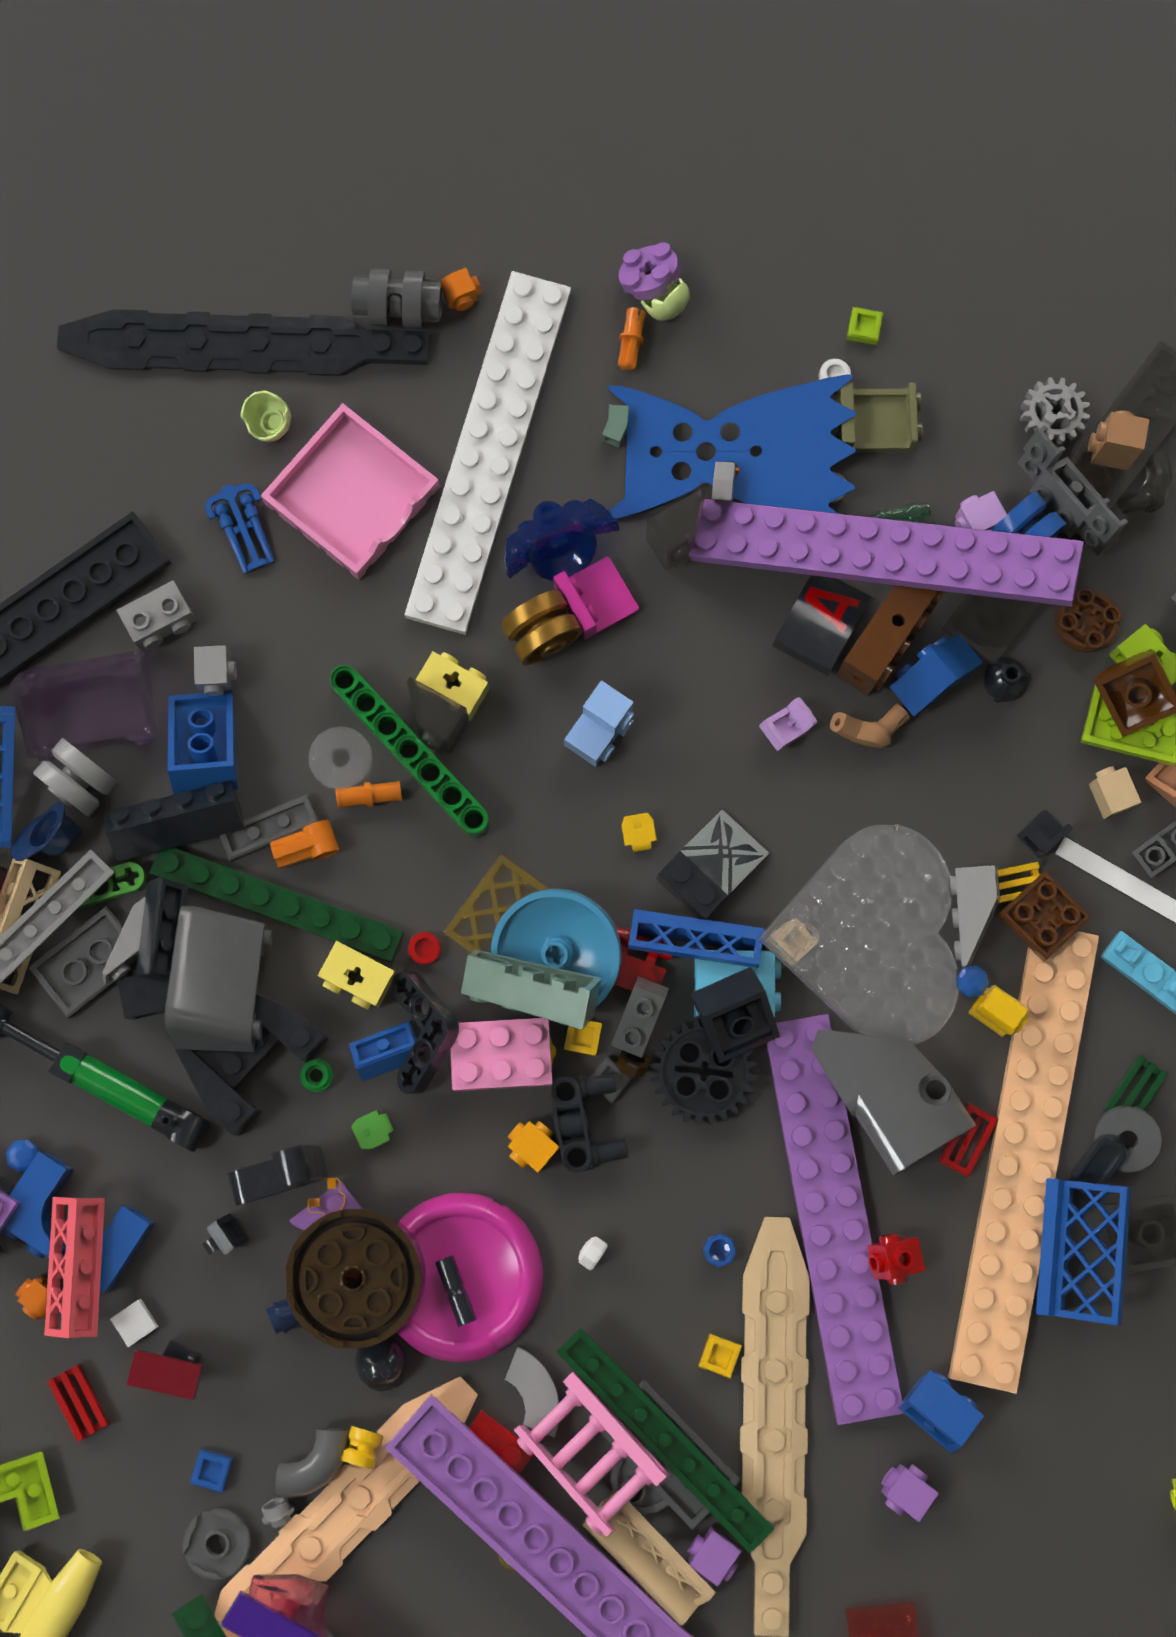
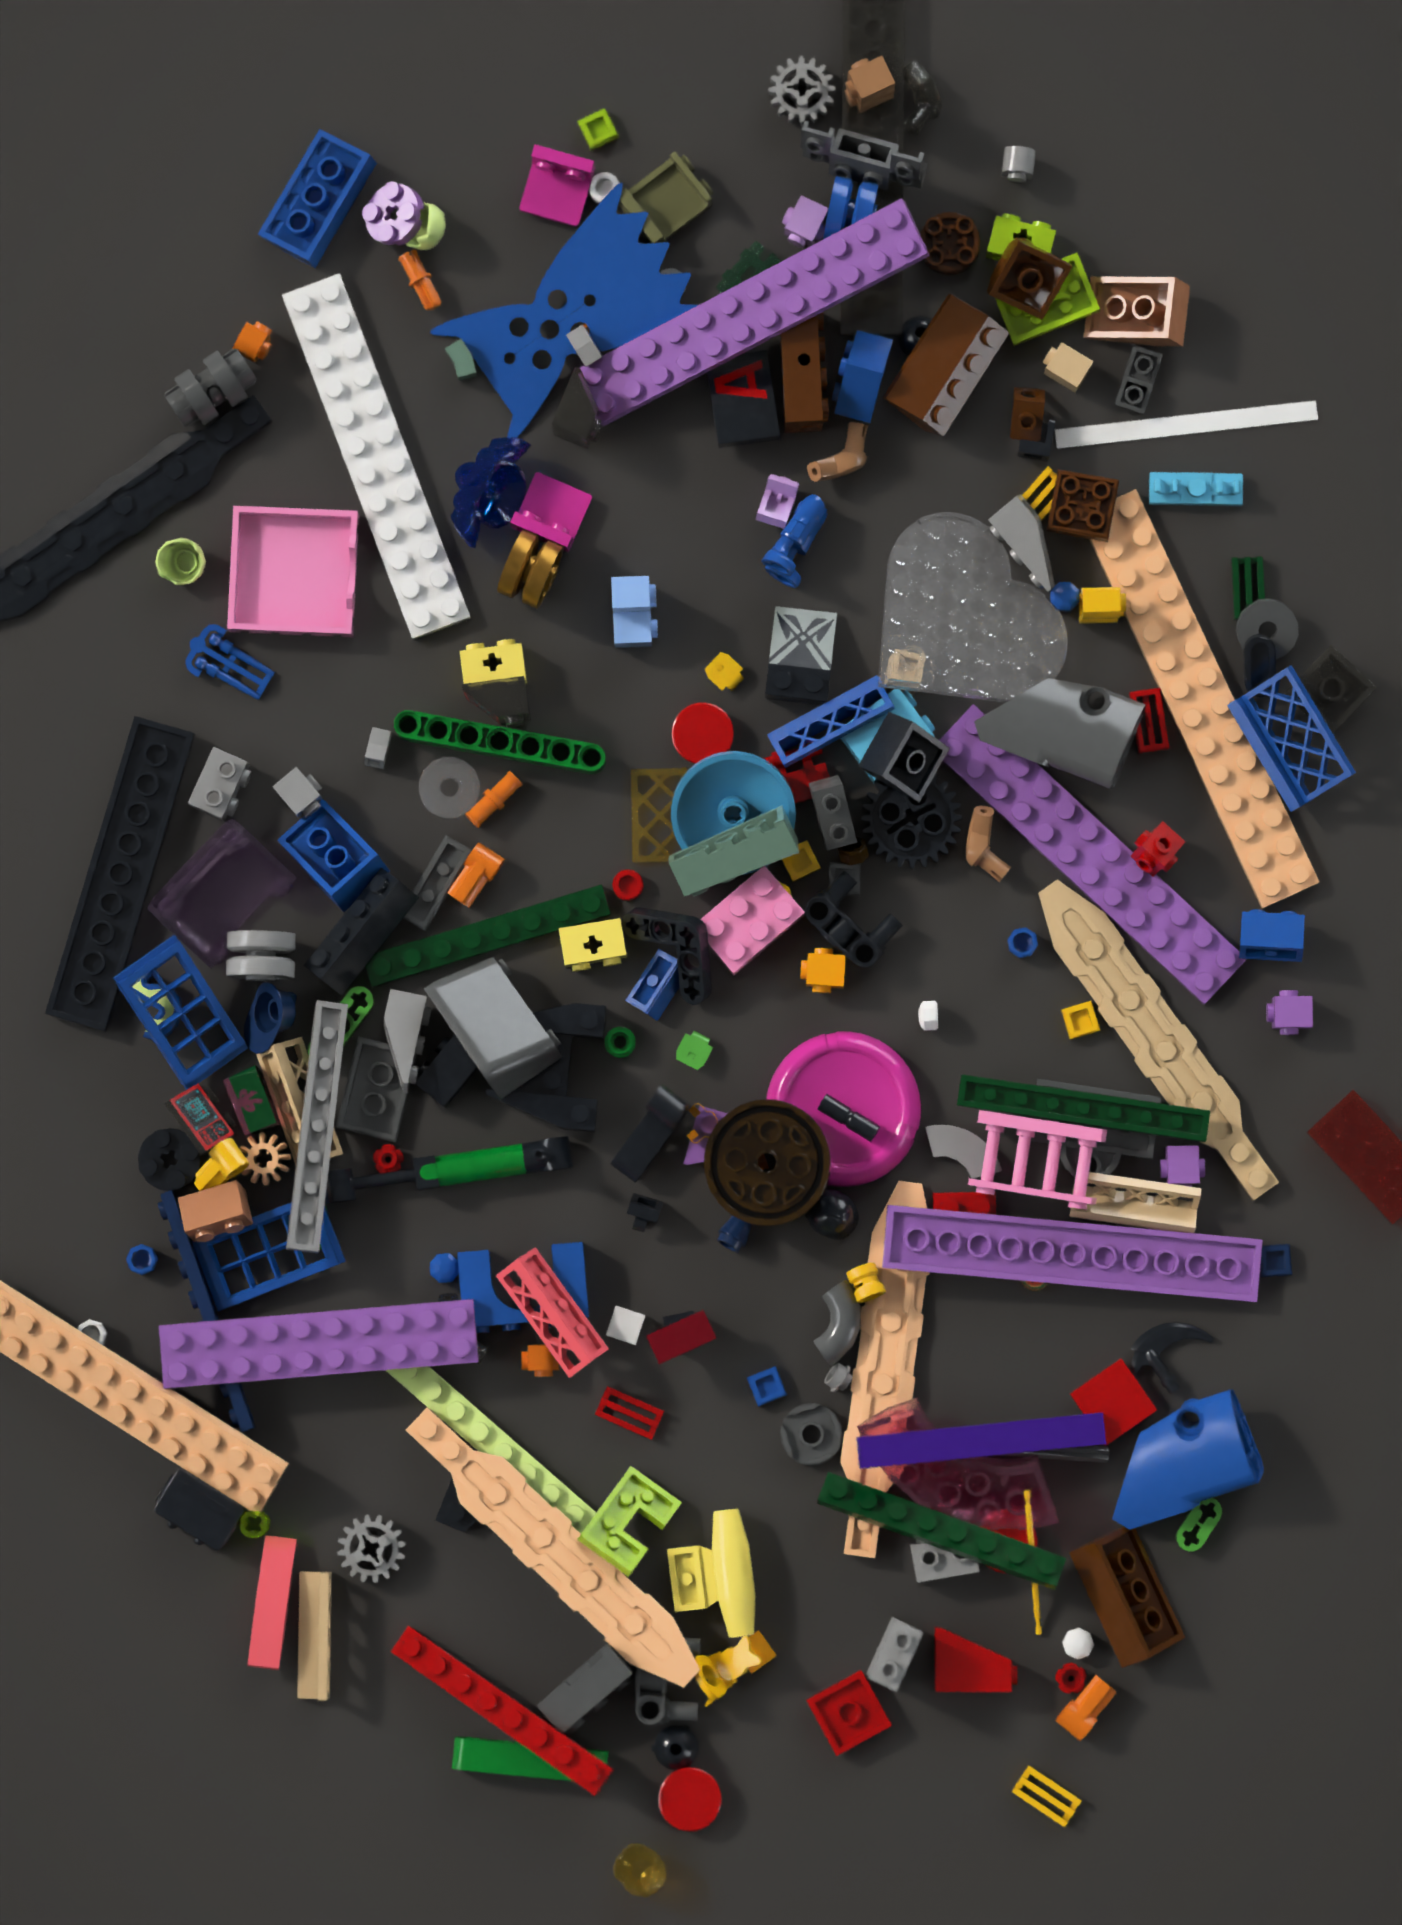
camera: 30 degrees left, 5 degrees up
(57, 1023) = (391, 1151): none -> red plate
(160, 928) = (420, 1019): black slope -> none
(307, 682) = (377, 748): none -> light grey piece
(582, 867) = (702, 731): none -> red tile
(599, 218) = (317, 198): none -> blue slope
(746, 1134) = (978, 844): none -> medium nougat arm
(780, 766) = (795, 539): none -> blue piece
(799, 343) = (557, 186): none -> dark pink bracket
(1013, 715) = (945, 365): none -> reddish brown slope
(1051, 806) = (1027, 414): none -> reddish brown bracket

